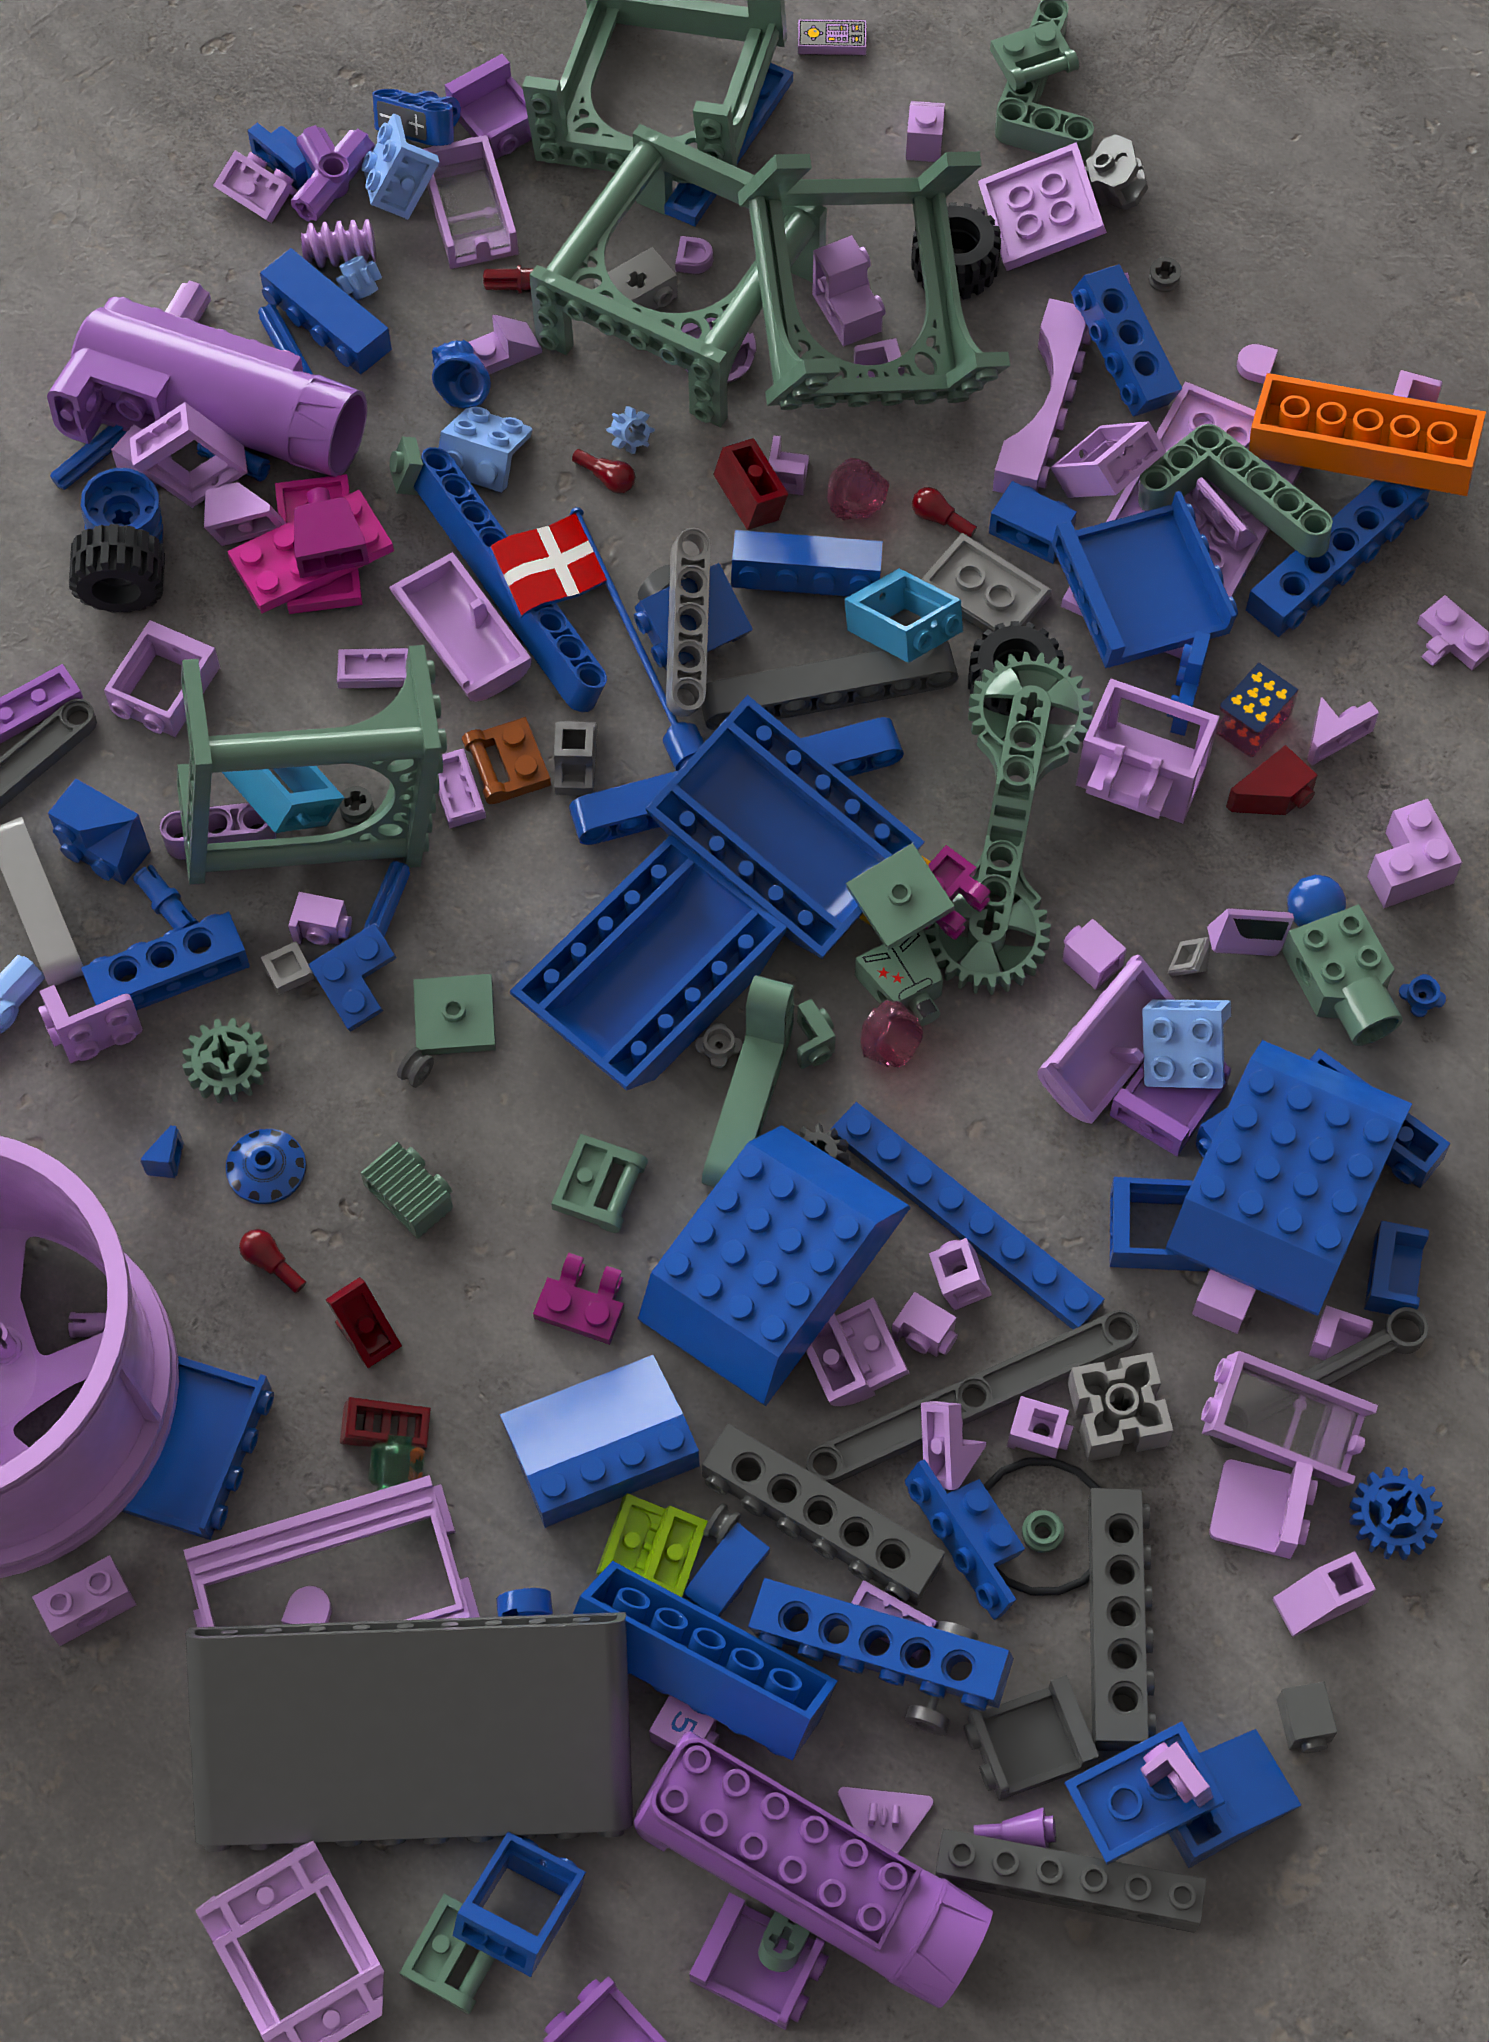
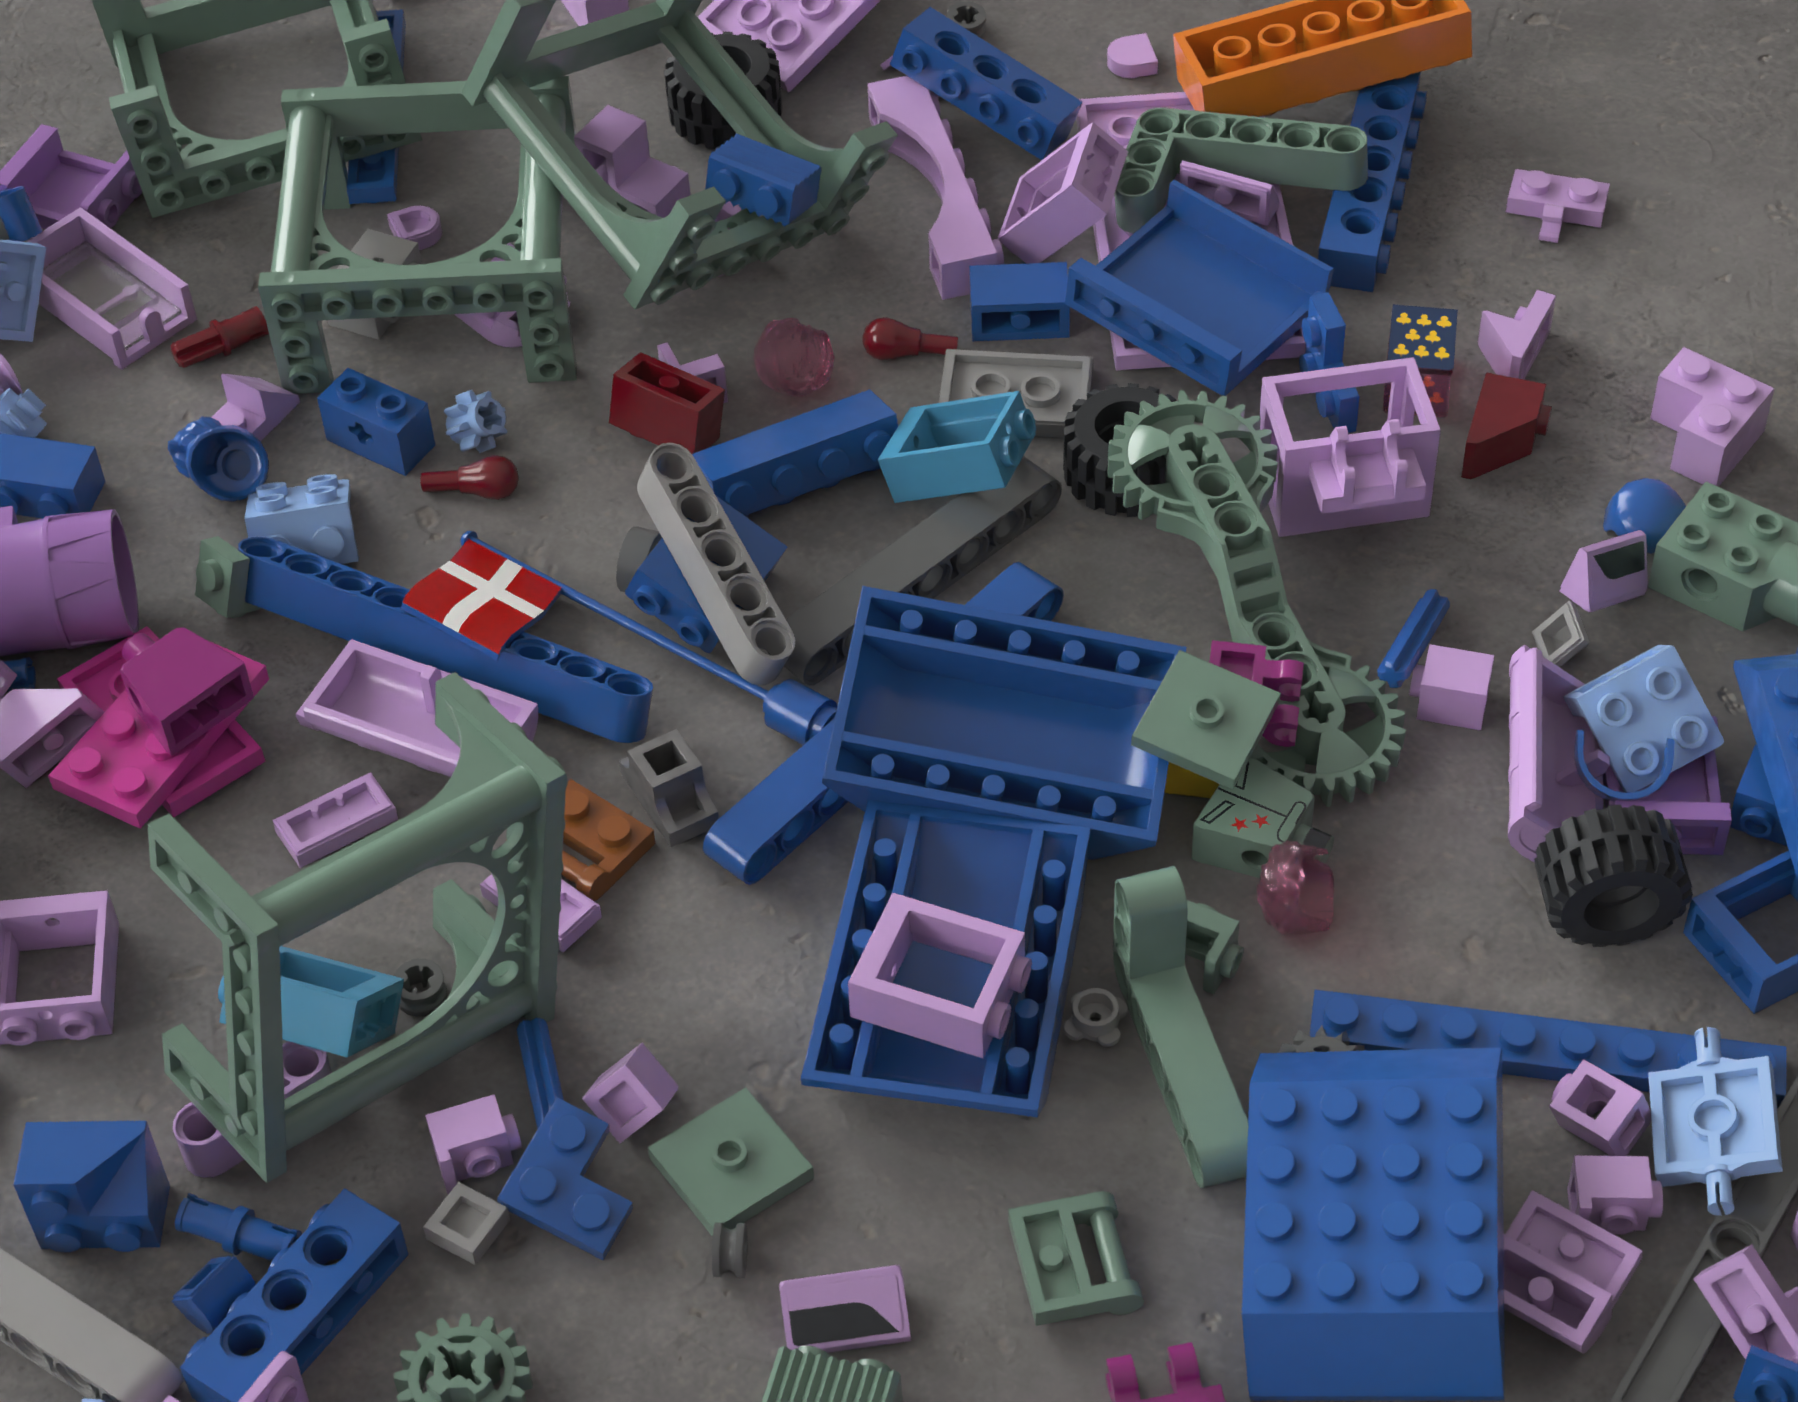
camera: 30 degrees left, 15 degrees down
(130, 930) = (212, 1291): none -> blue brick
(425, 940) = (631, 1092): none -> lavender panel
(454, 1140) = (846, 1310): none -> lavender slope
(570, 397) = (376, 421): none -> blue brick
(601, 944) = (928, 1017): none -> lavender window
(908, 350) = (763, 179): none -> blue brick
(1016, 1319) = (1714, 1121): none -> light blue plate
(1074, 1135) = (1613, 876): none -> black tyre
(1092, 907) = (1413, 638): none -> blue axle
(1125, 1082) = (1611, 795): none -> blue helmet

